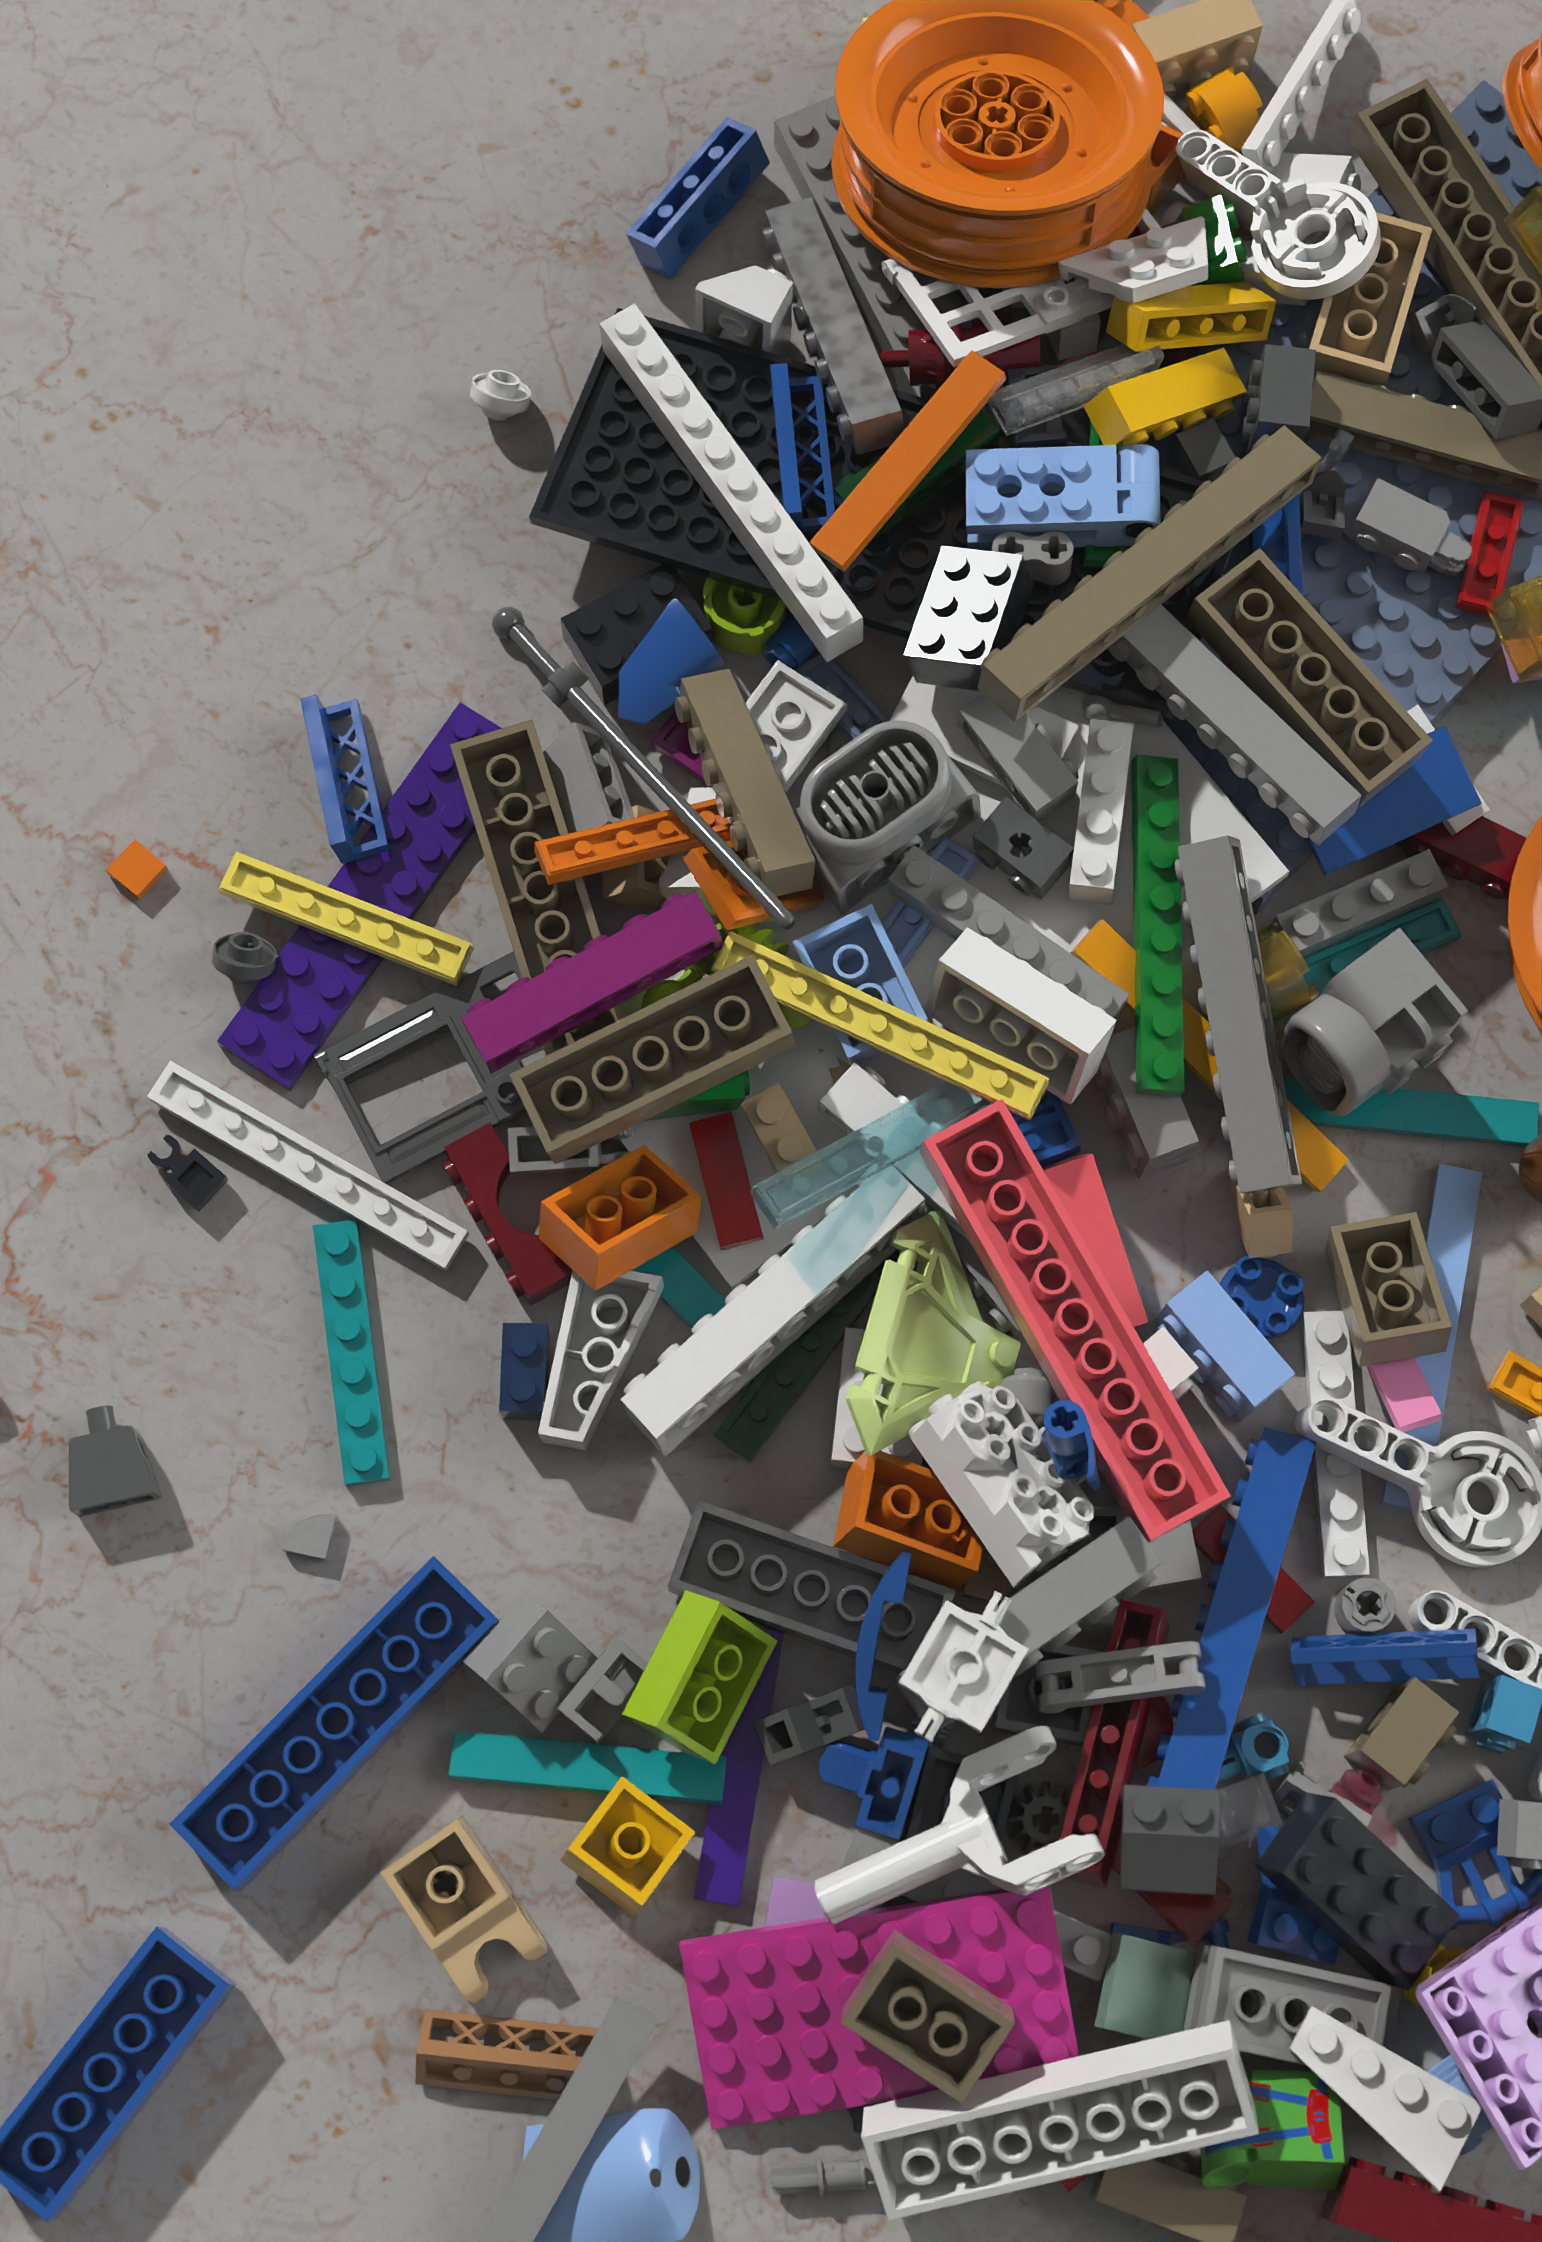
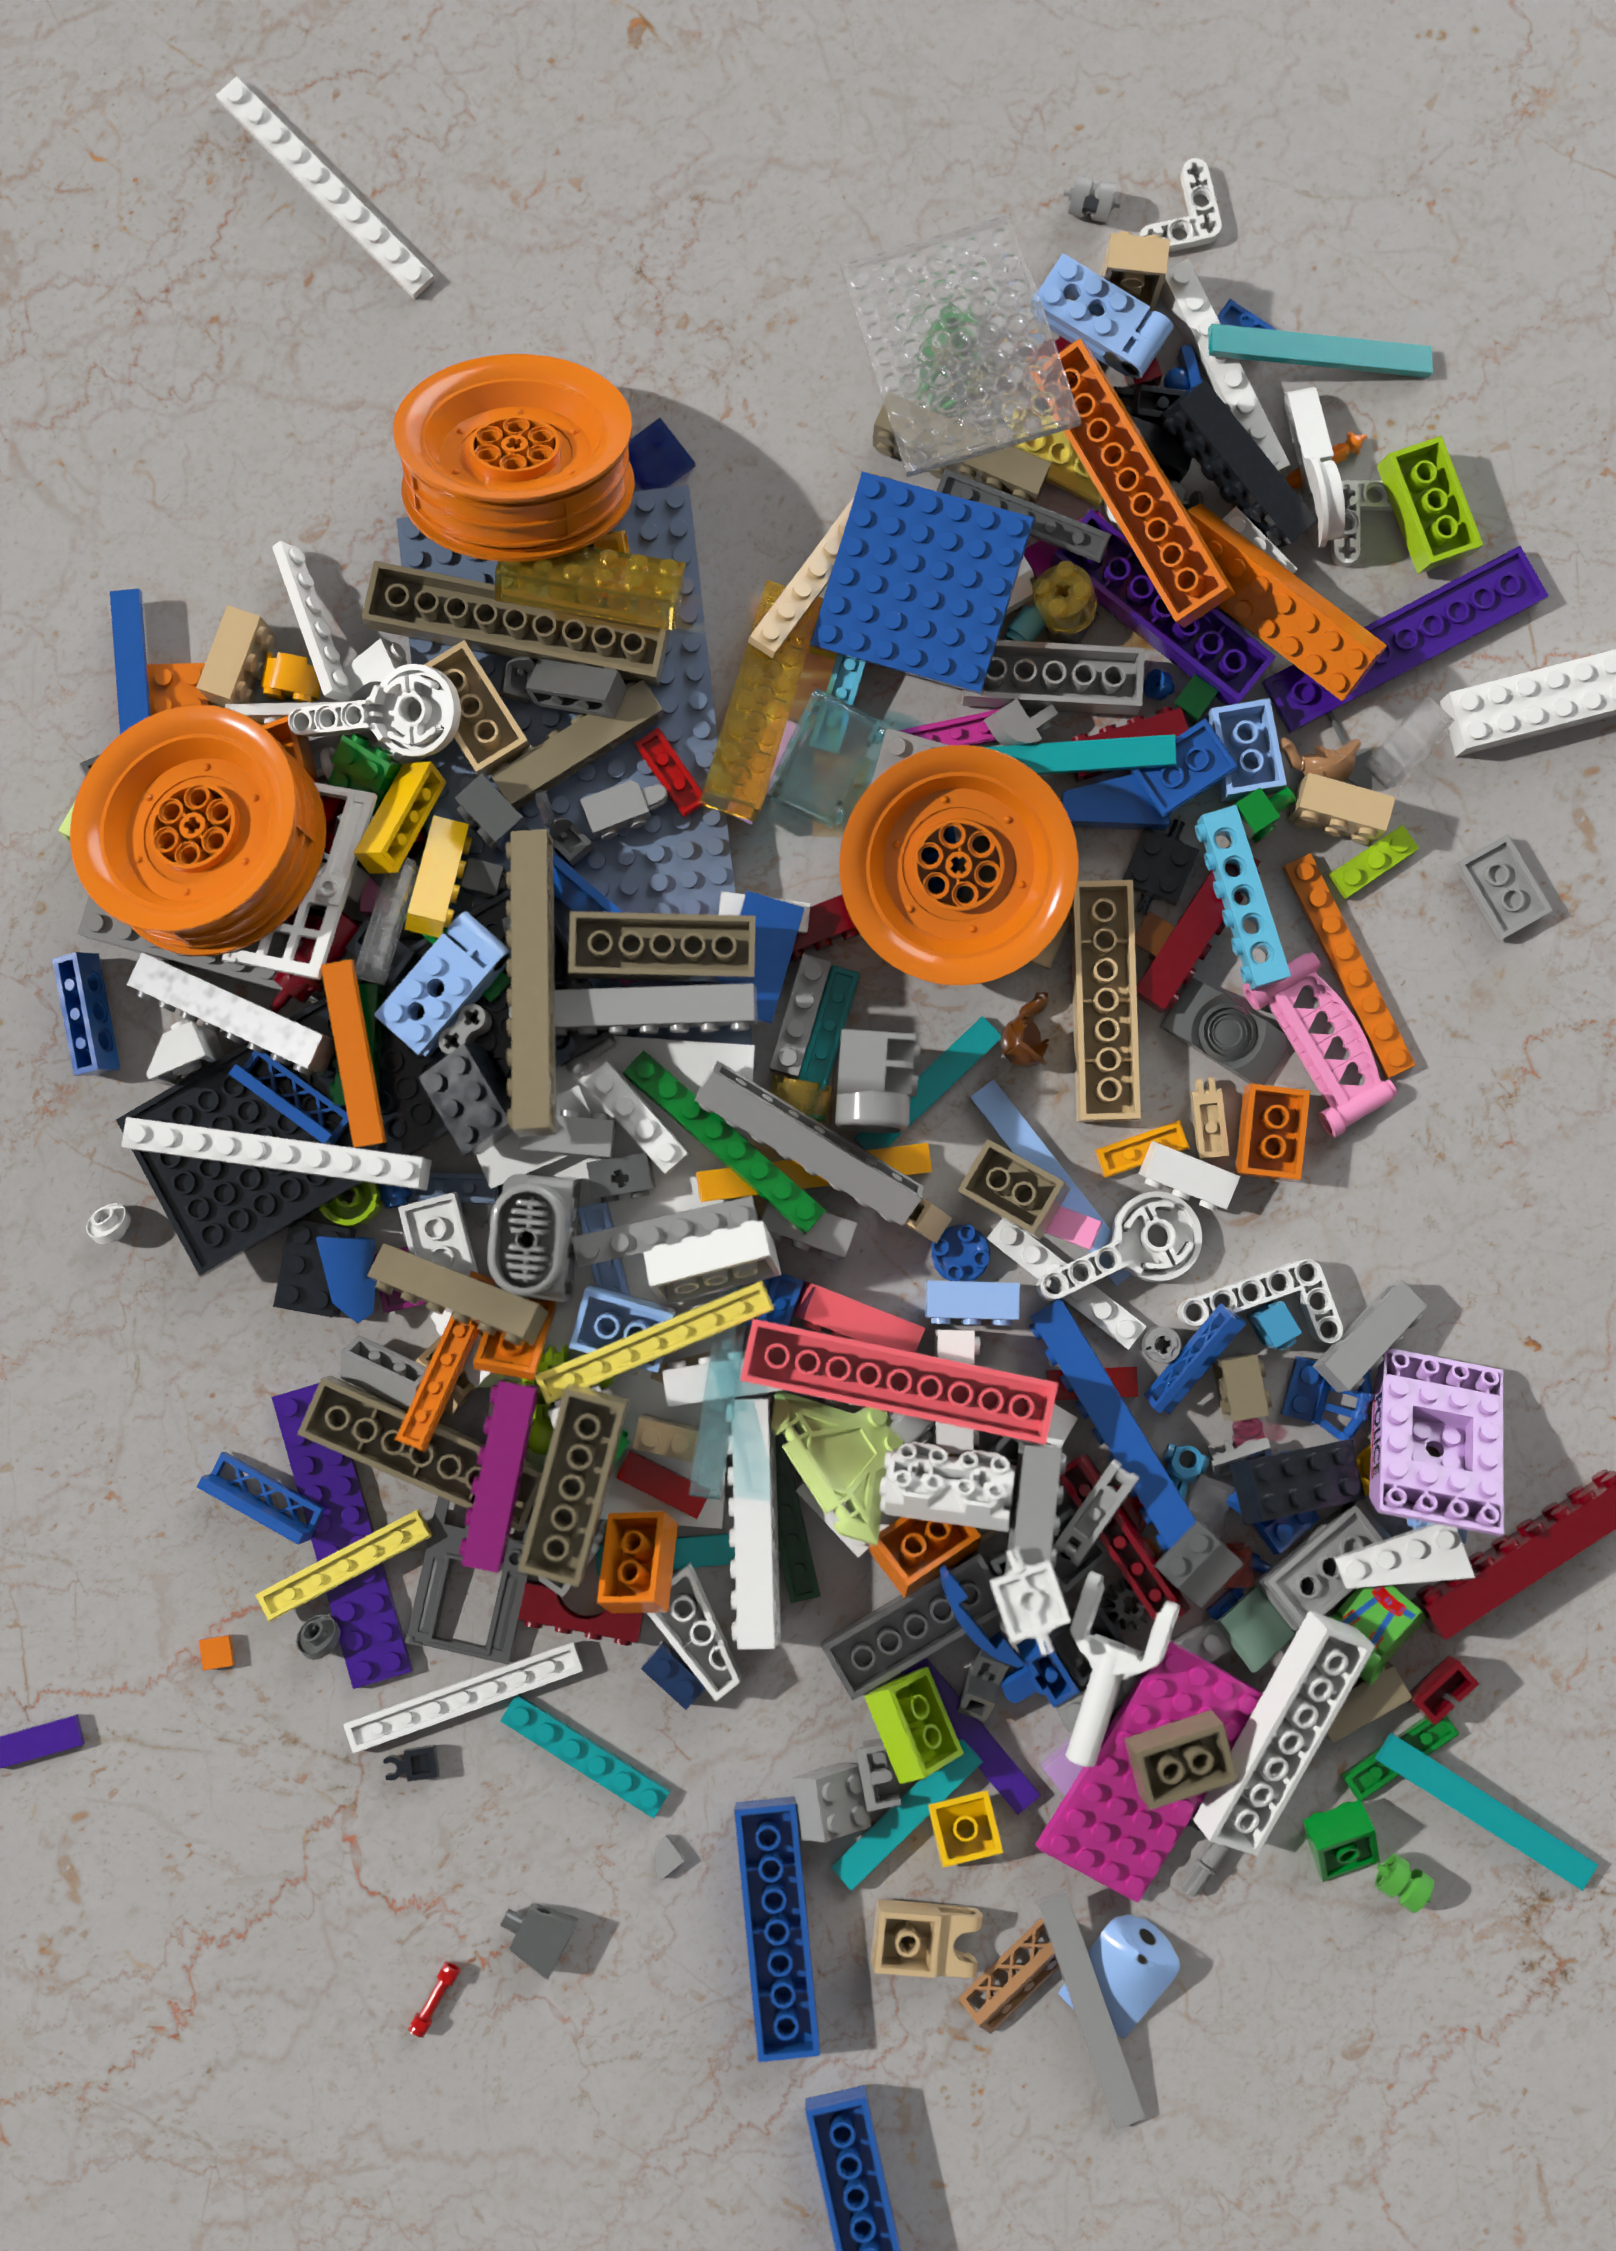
camera: 45 degrees left, 10 degrees up
(565, 686) = (314, 1335): dark grey bar -> none
(1070, 1442) = (966, 1444): blue panel -> none
(1145, 264) = (351, 819): white wing -> none

